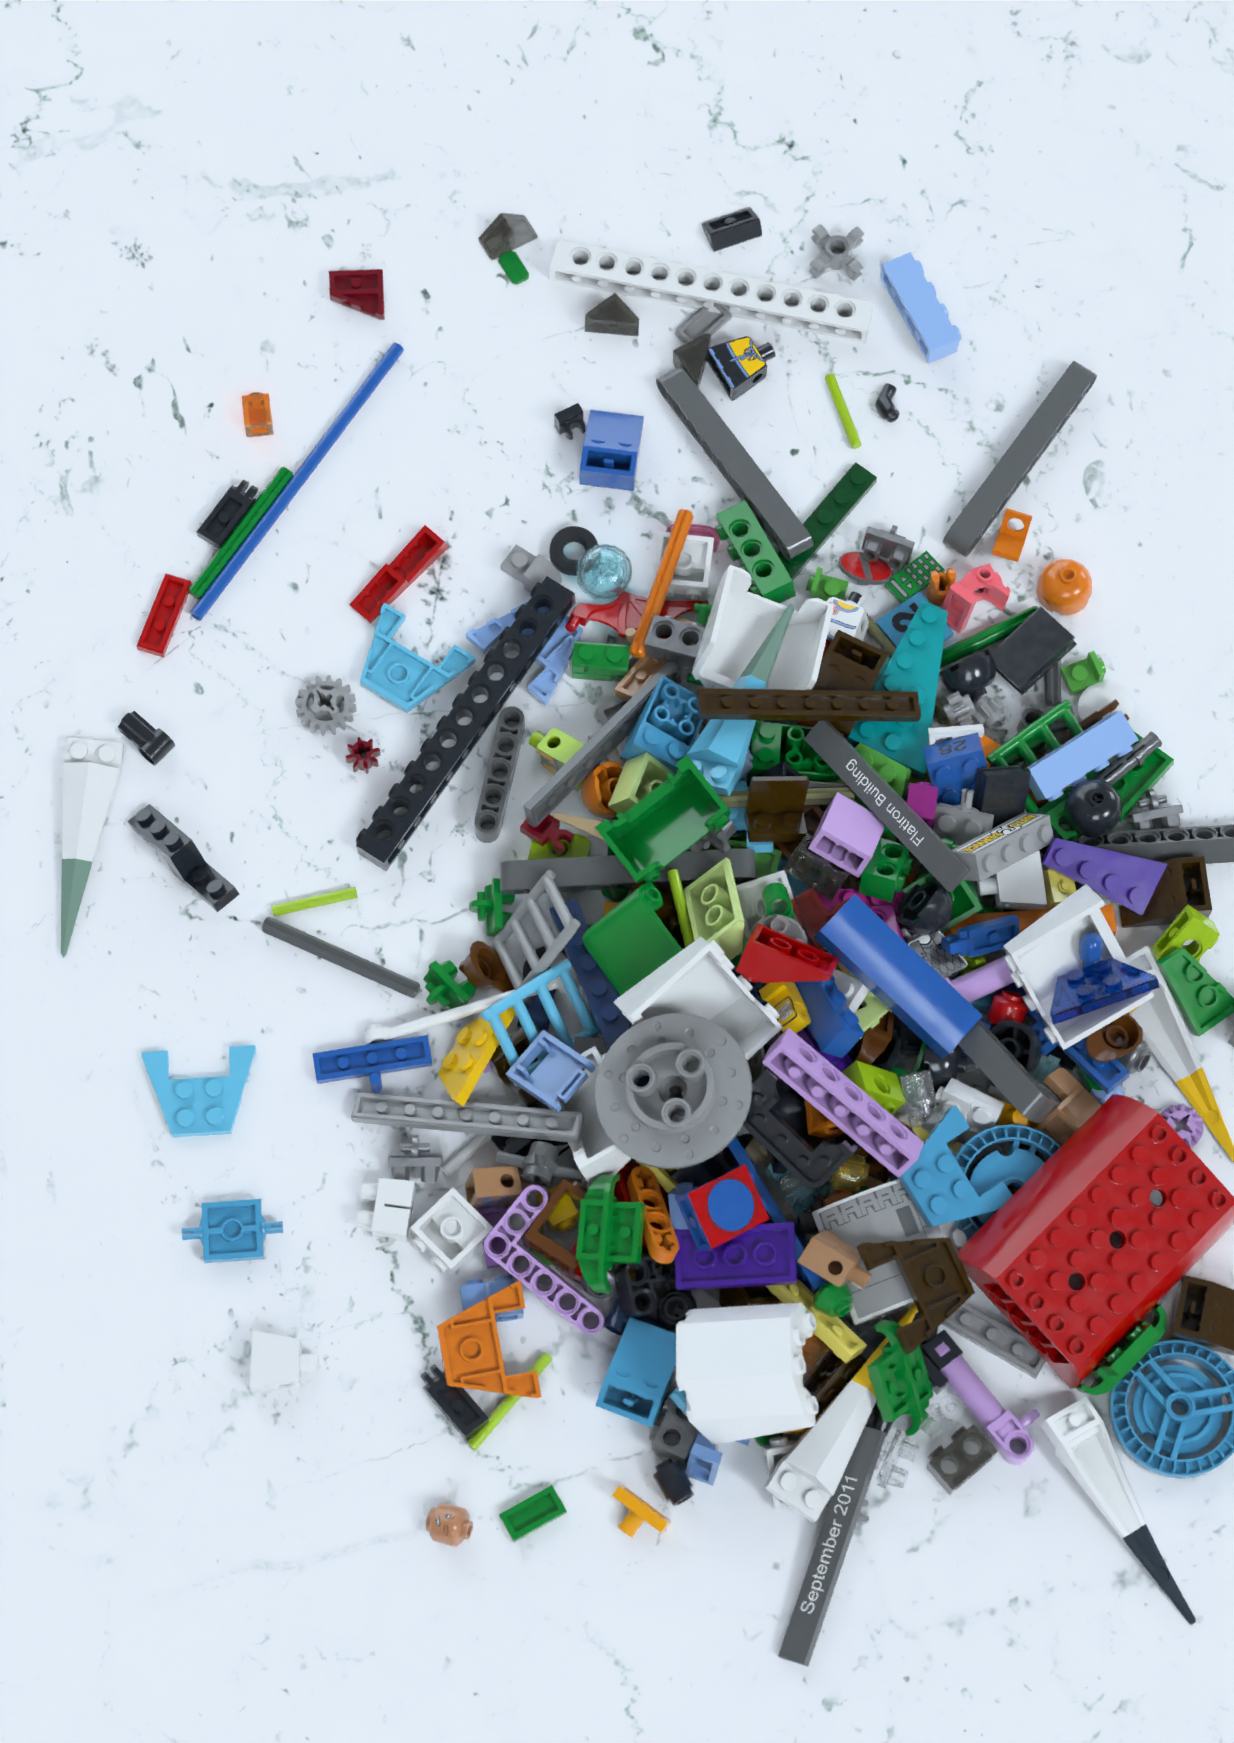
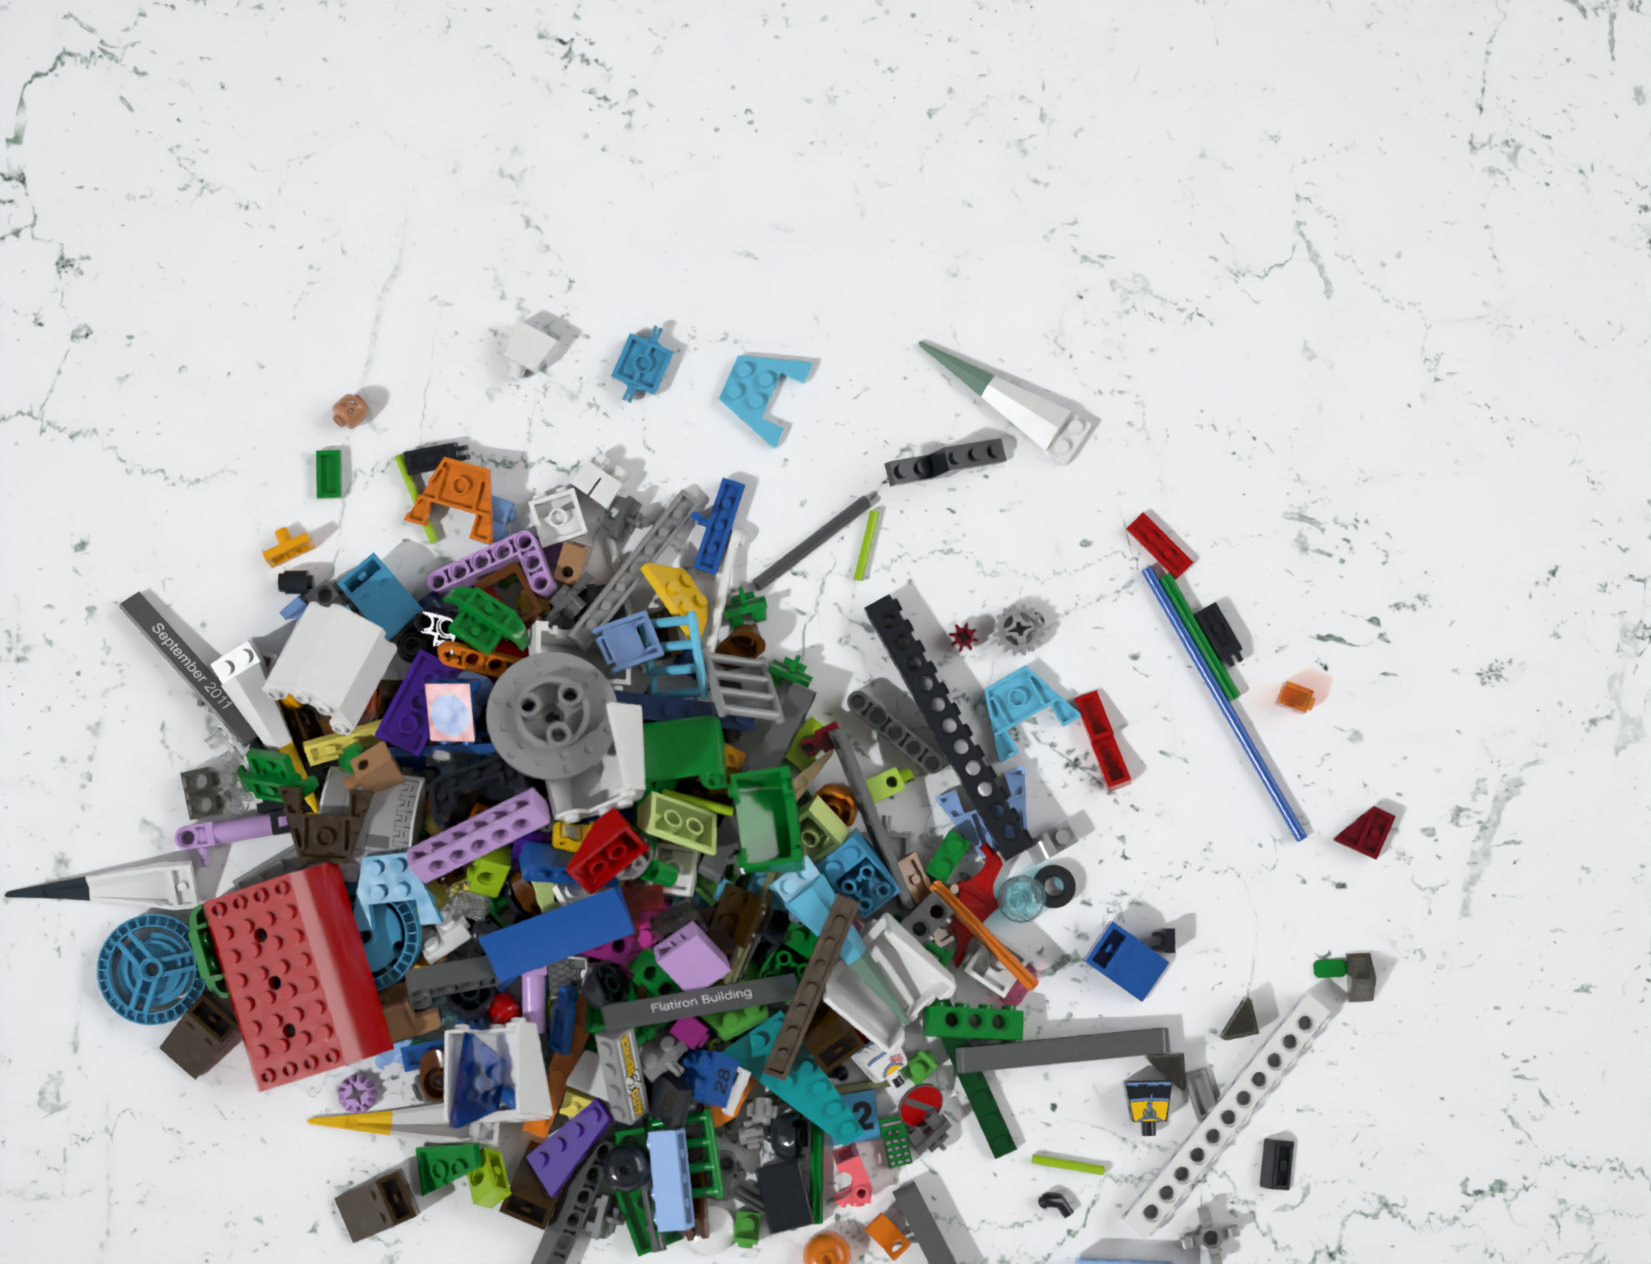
camera: 115 degrees right, 15 degrees up
(151, 742) = (1056, 484): black piece -> none
(943, 581) = (877, 1150): orange hinge -> none

